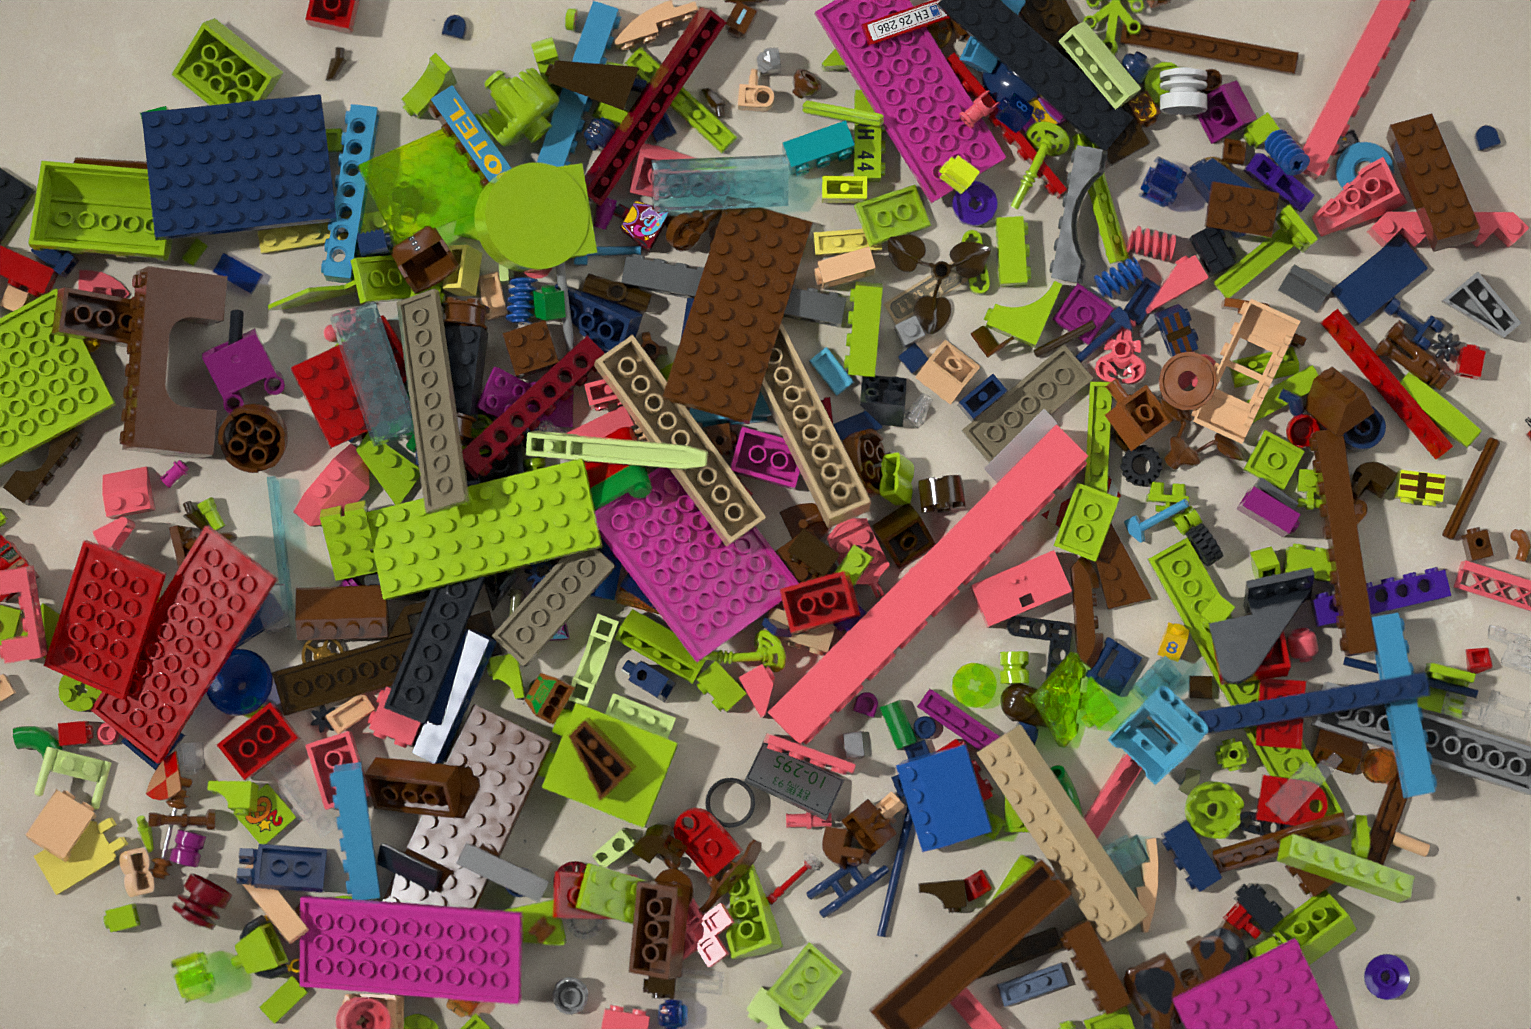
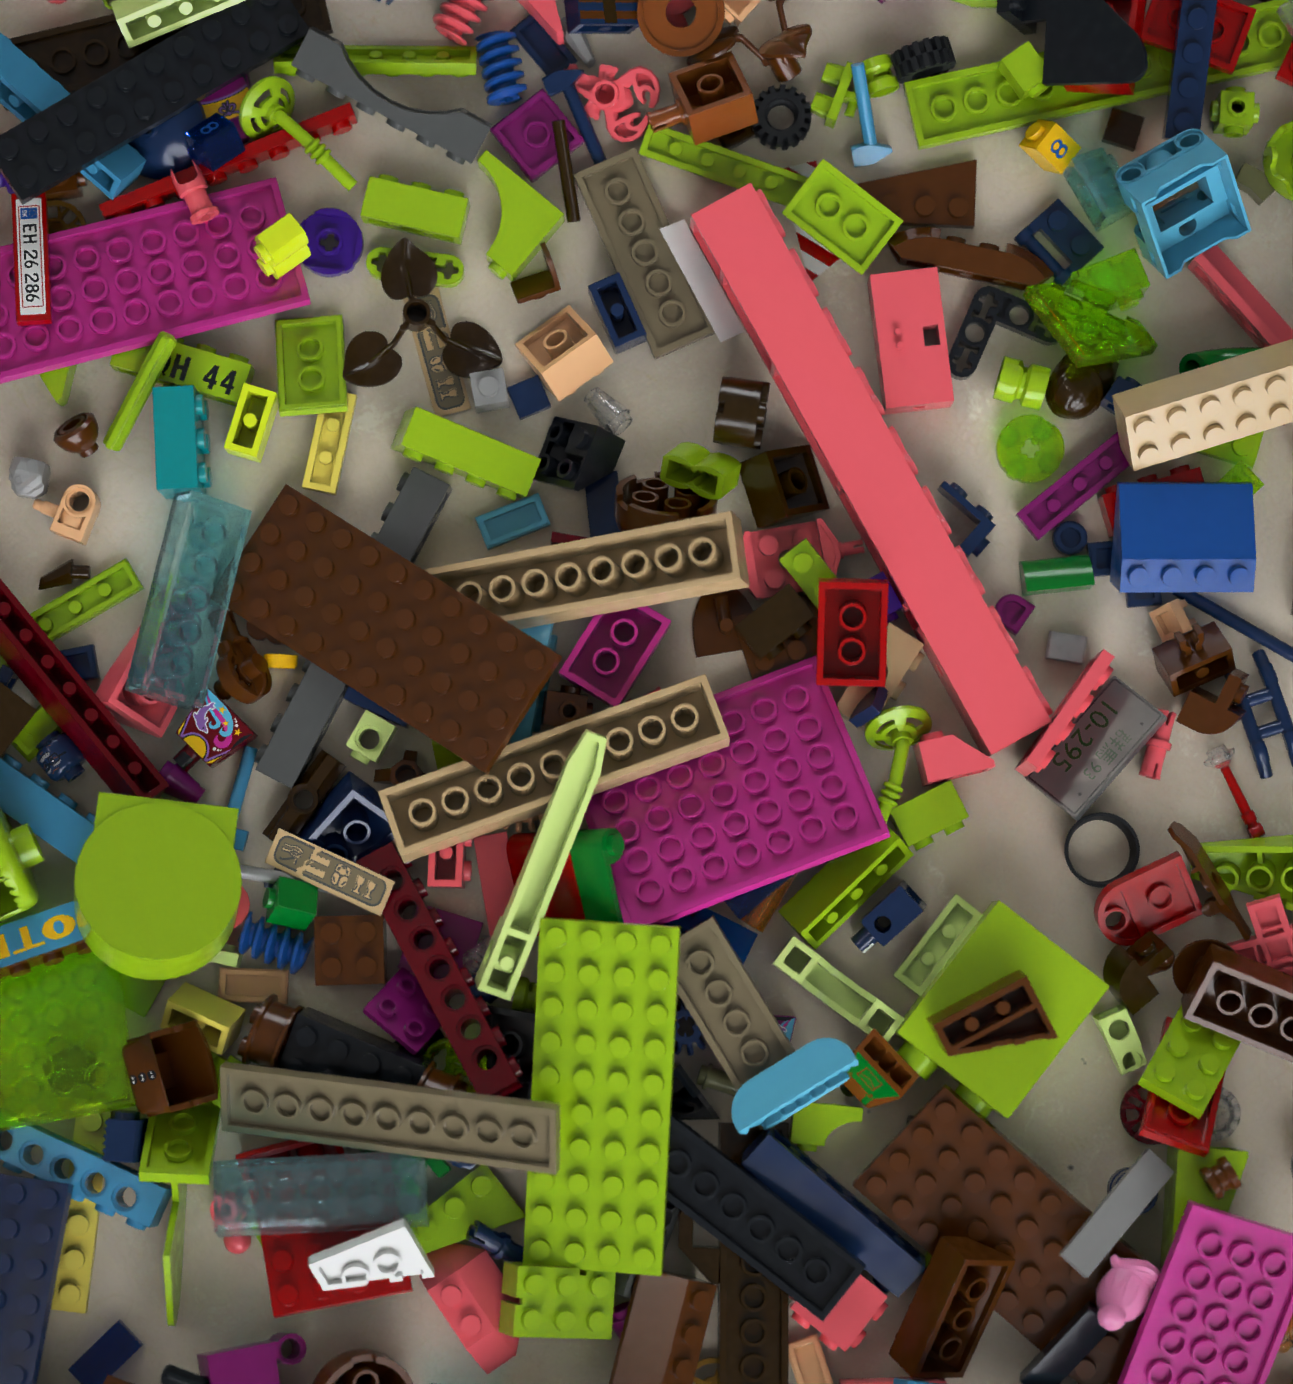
camera: 75 degrees left, 0 degrees up
(346, 419) = (372, 1256): none -> white wing
(374, 495) = (497, 1243): none -> dark blue pin
(454, 890) = (1124, 1291): none -> bright pink hair
(524, 645) = (792, 1084): none -> medium azure brick
(575, 321) = (329, 872): none -> sticker
(674, 330) = (371, 722): none -> yellowish green brick
(699, 252) = (281, 661): none -> yellow tile
(845, 268) = (369, 455): light nougat window -> none
(904, 667) = (976, 540): none -> dark blue bracket

